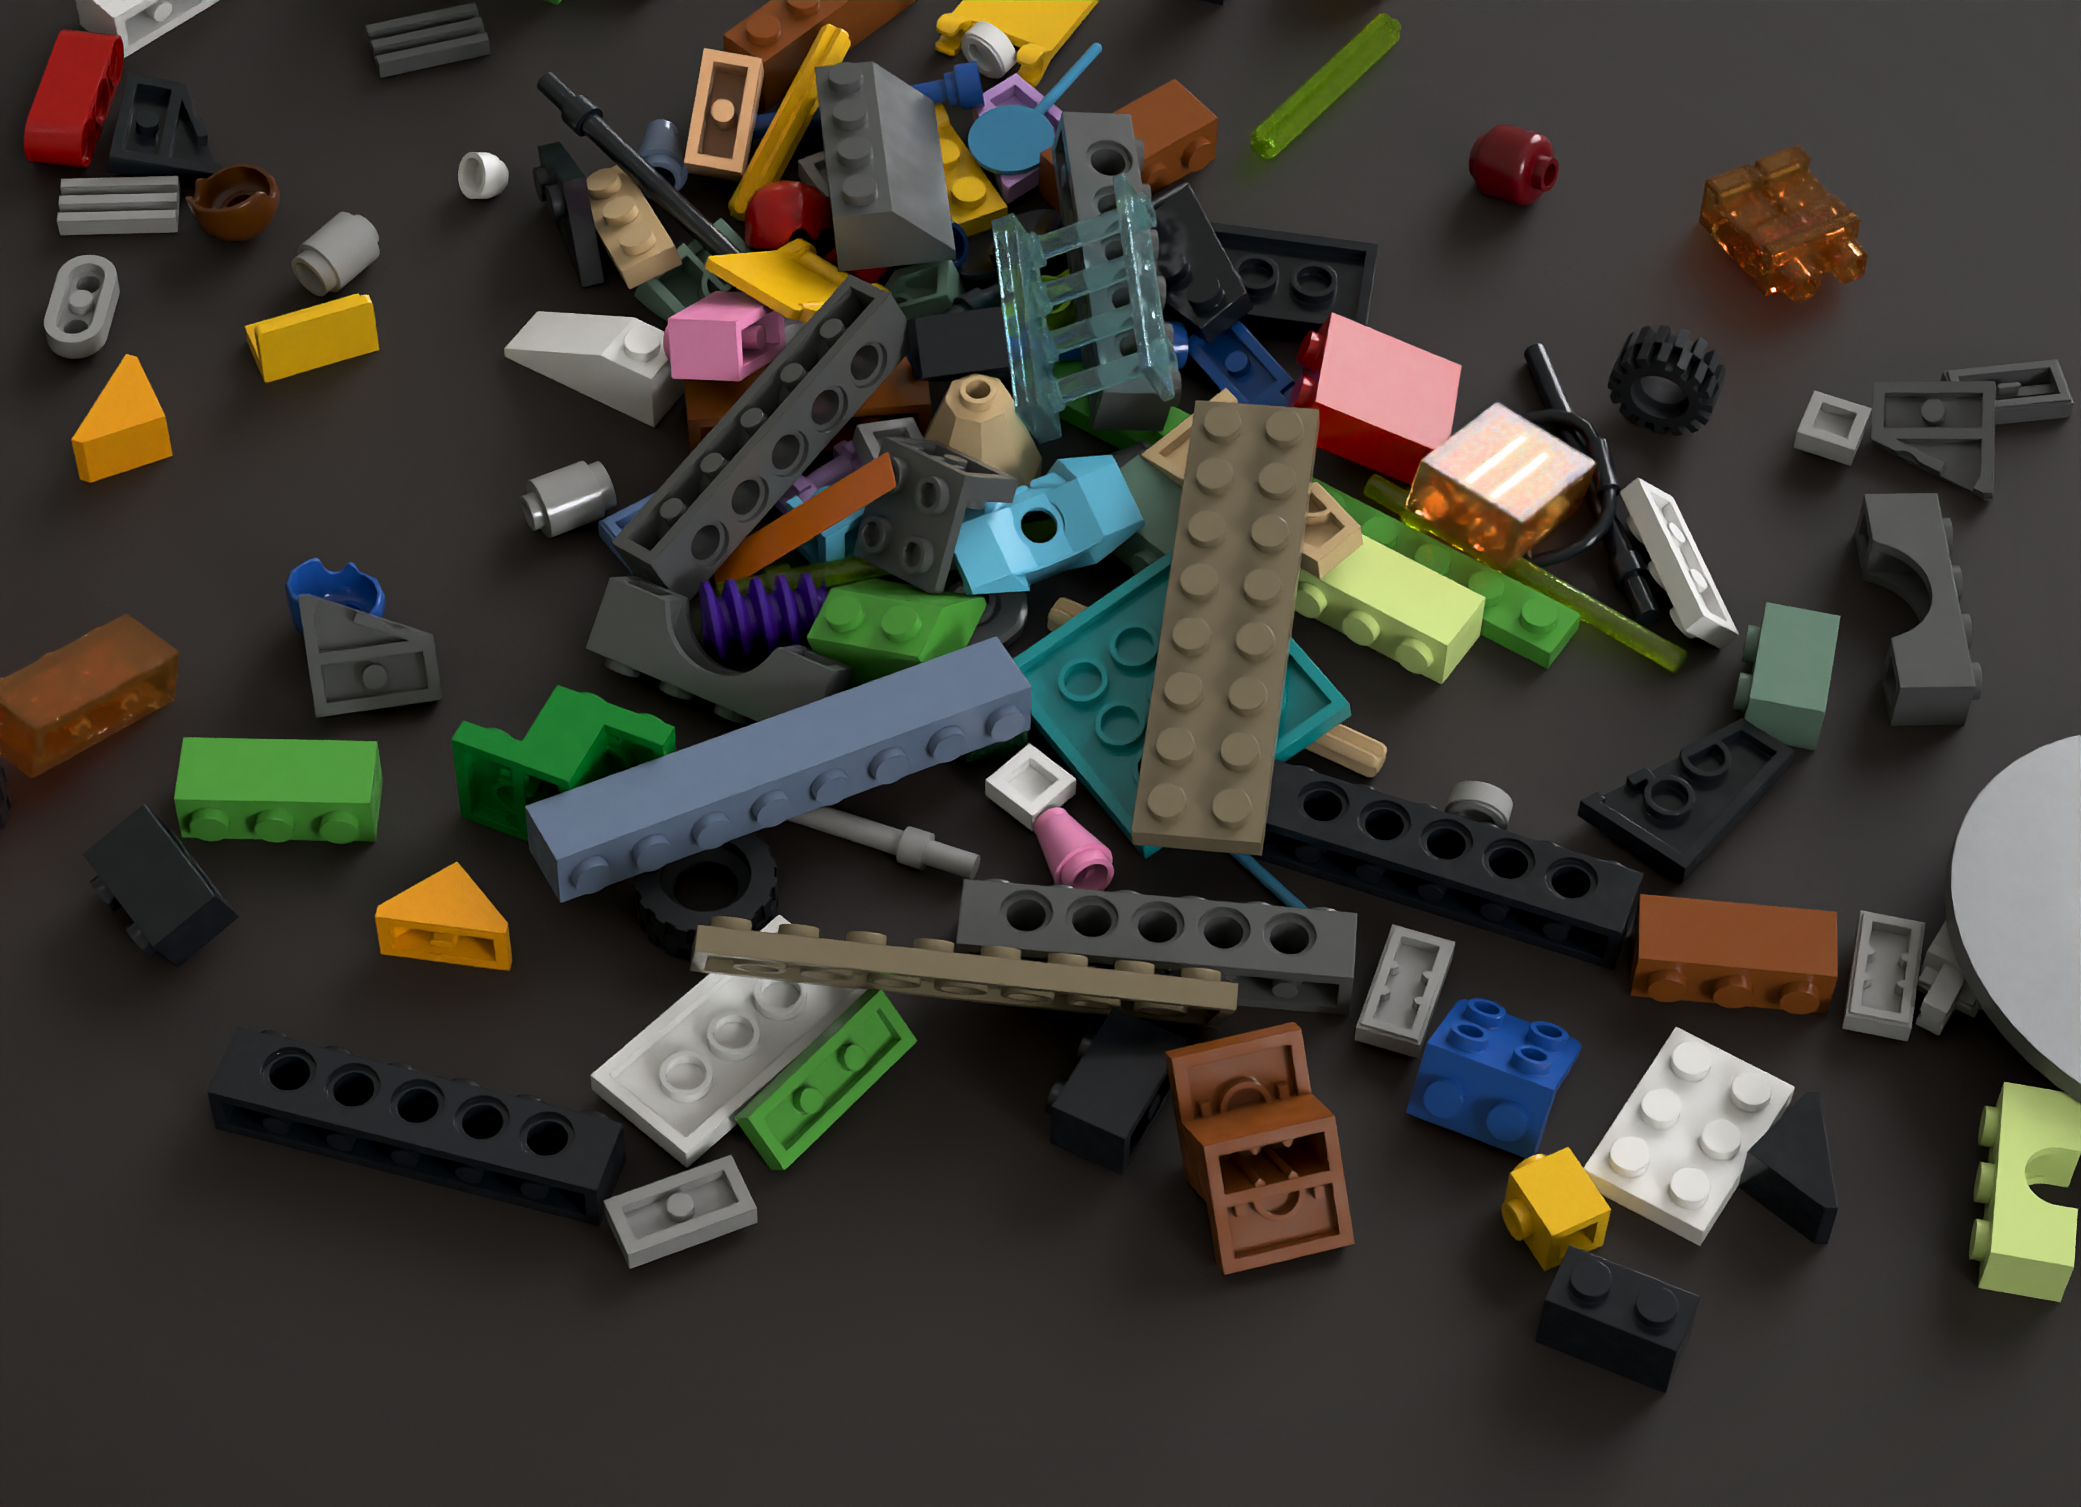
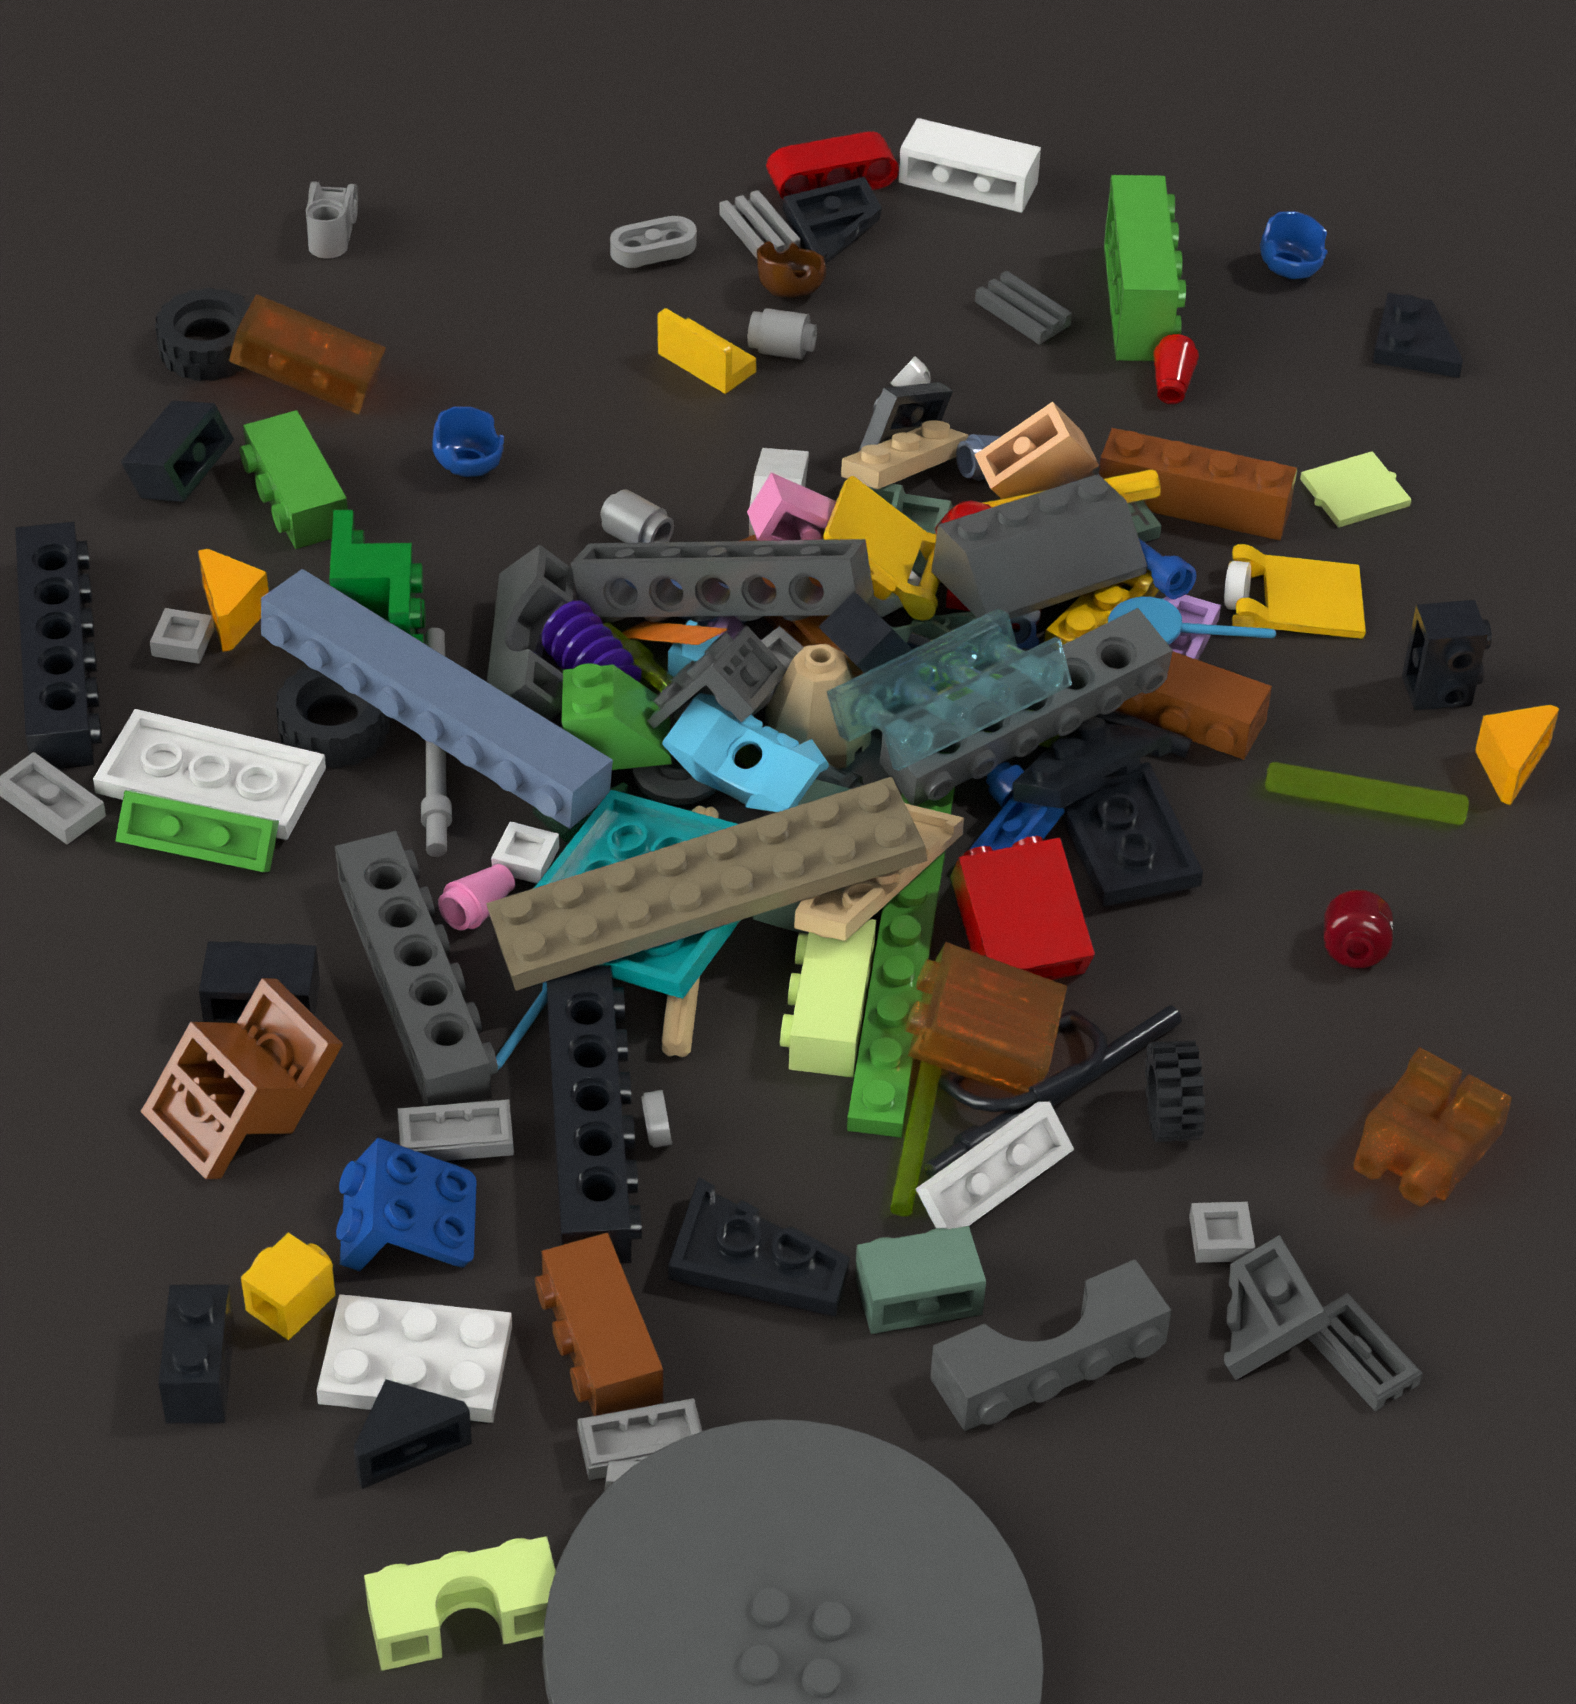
camera: 65 degrees right, 5 degrees down
(122, 426) = (562, 294): light orange slope -> none
(365, 659) = (424, 472): dark grey wing -> none
(480, 993) = (182, 635): none -> light grey plate
(586, 120) = (978, 394): black bar -> none
(938, 972) = (289, 847): dark tan plate -> none

